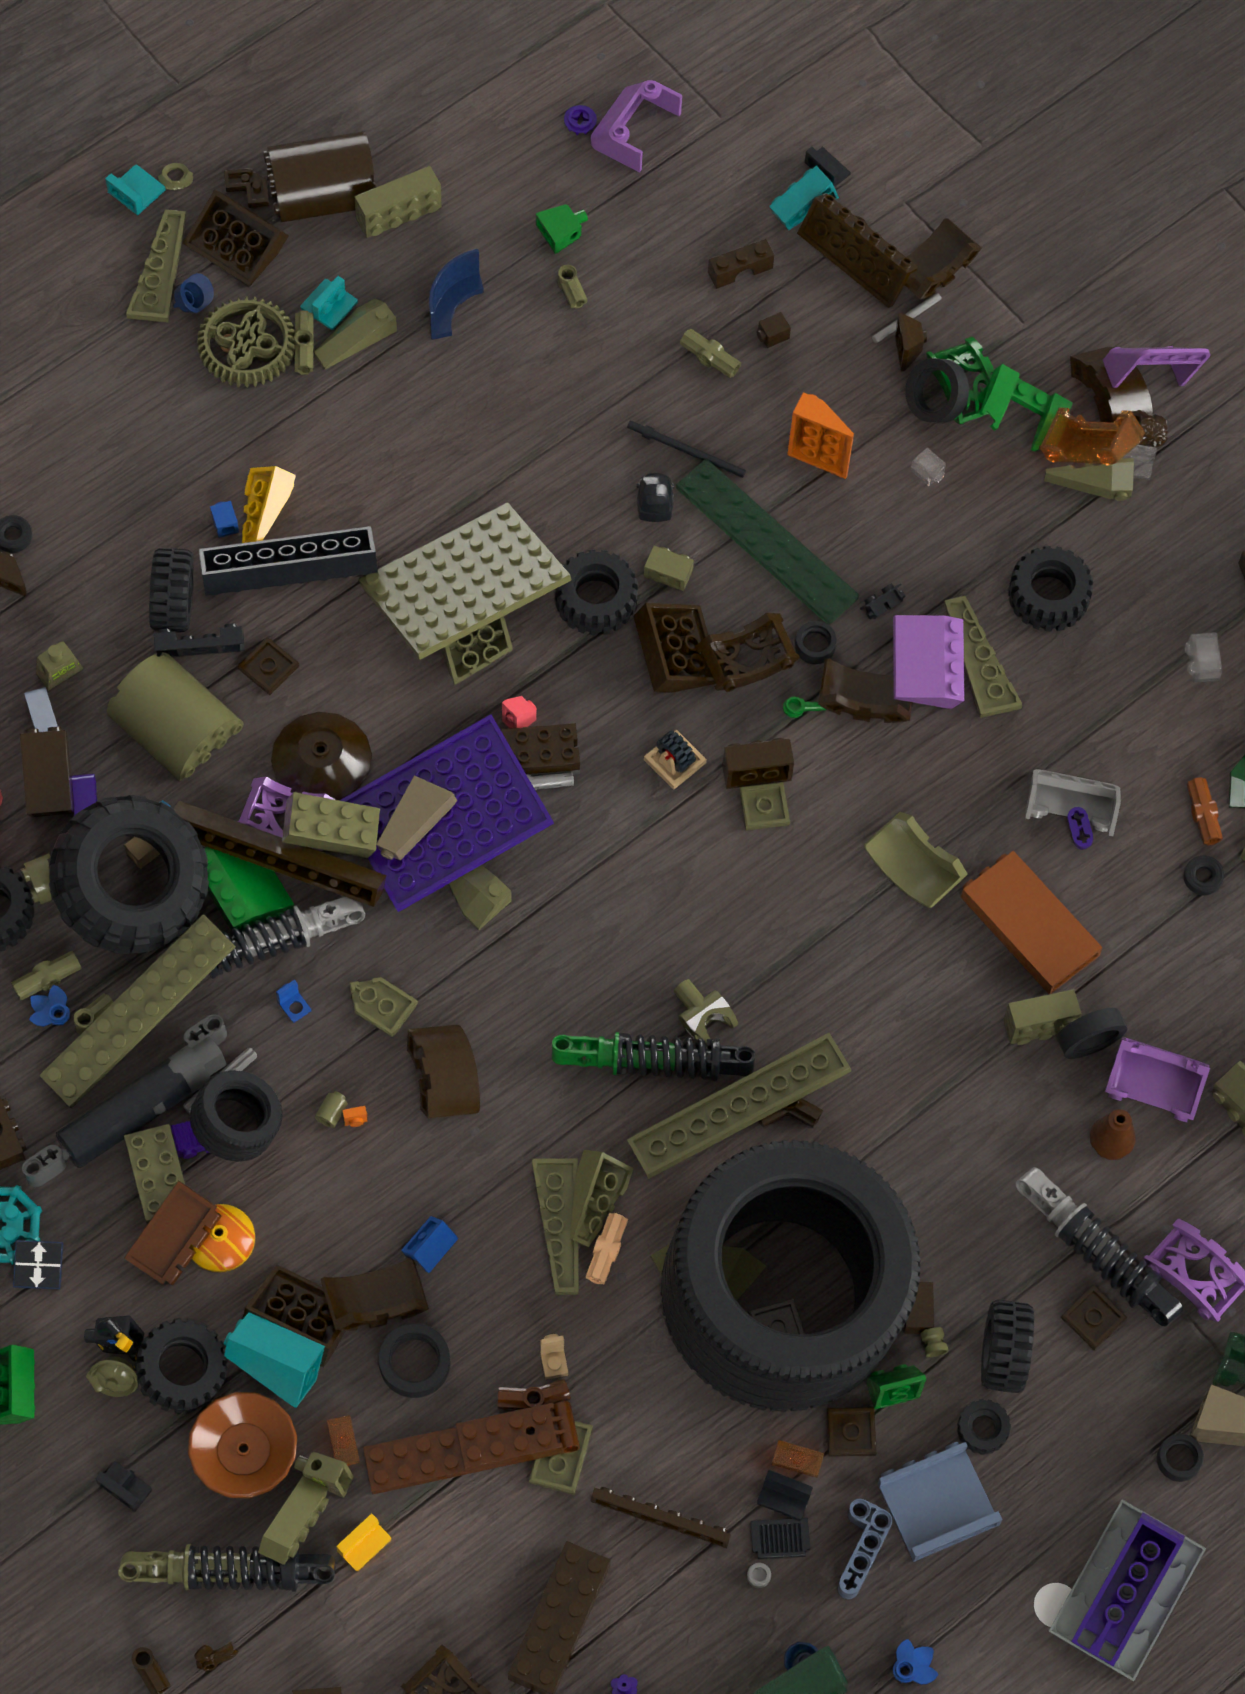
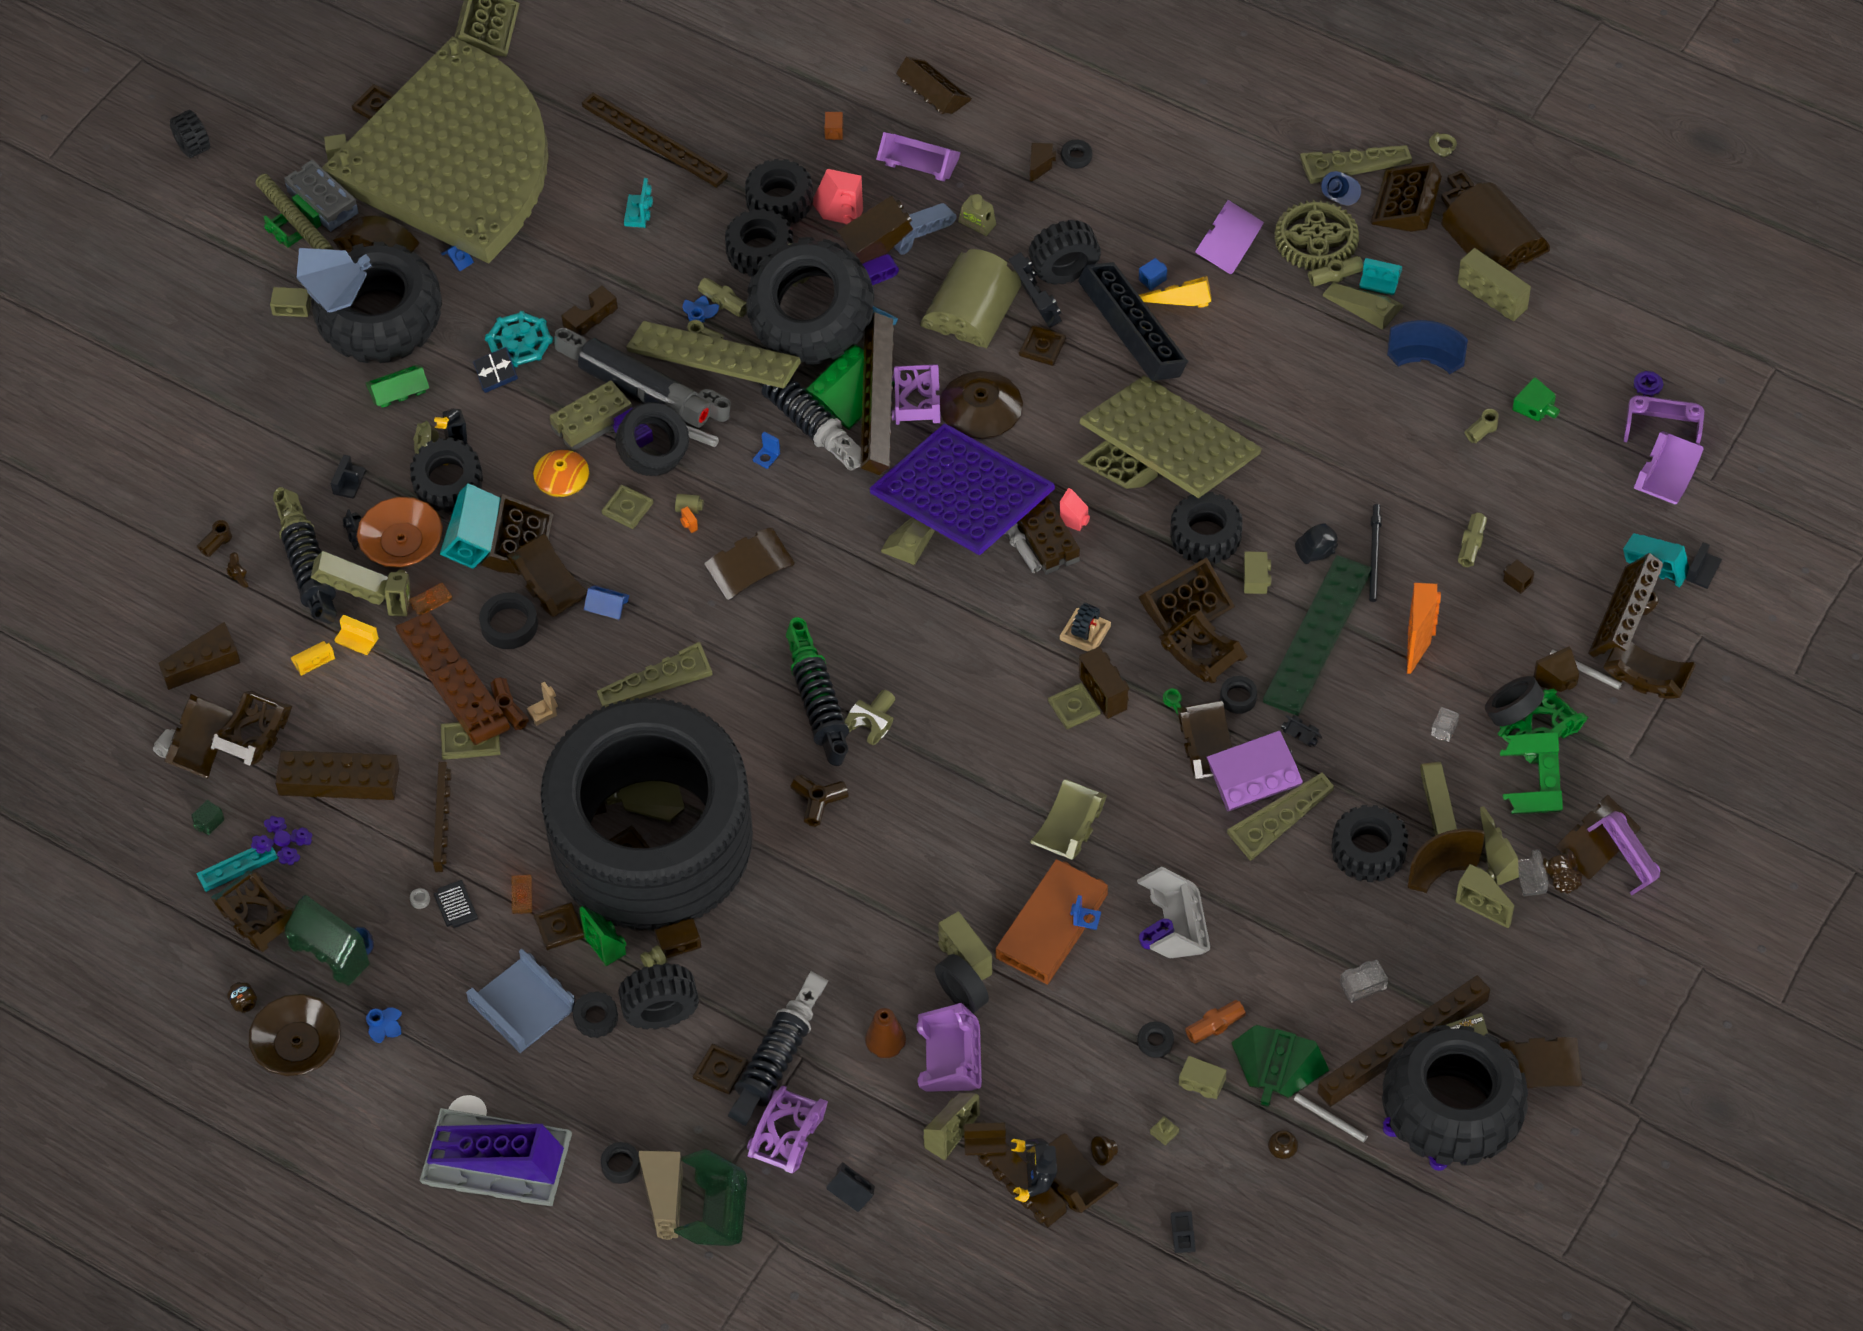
camera: 75 degrees right, 10 degrees down
(134, 189) = (1415, 122): teal bracket -> none
(171, 1232) = (546, 436): reddish brown hinge -> none
(194, 1500) = (351, 523): none -> black hinge
(212, 422) = (1230, 237): none -> medium lavender panel
(302, 1179) = (627, 506): none -> olive tile
(331, 825) = (912, 414): olive brick -> none
(371, 1603) = (313, 657): none -> yellow panel
(382, 1004) = (789, 509): olive tile -> none
(414, 817) = (944, 466): dark tan slope -> none
(597, 1187) = (695, 690): olive wedge -> none
(697, 145) = (1670, 468): none -> medium lavender panel
(727, 266) = (1580, 540): dark brown arch -> none
(739, 1105) = (797, 759): olive plate -> none
(784, 1495) = (487, 894): black panel -> none
(861, 1552) = (435, 959): sand blue beam -> none
(1021, 509) = (1437, 797): none -> olive beam
(1045, 888) = (1078, 914): none -> blue bracket
(1088, 533) = (1445, 852): none -> dark brown panel
(1091, 442) = (1523, 823): clear orange windscreen -> none
(1150, 509) = (1482, 895): none -> olive slope

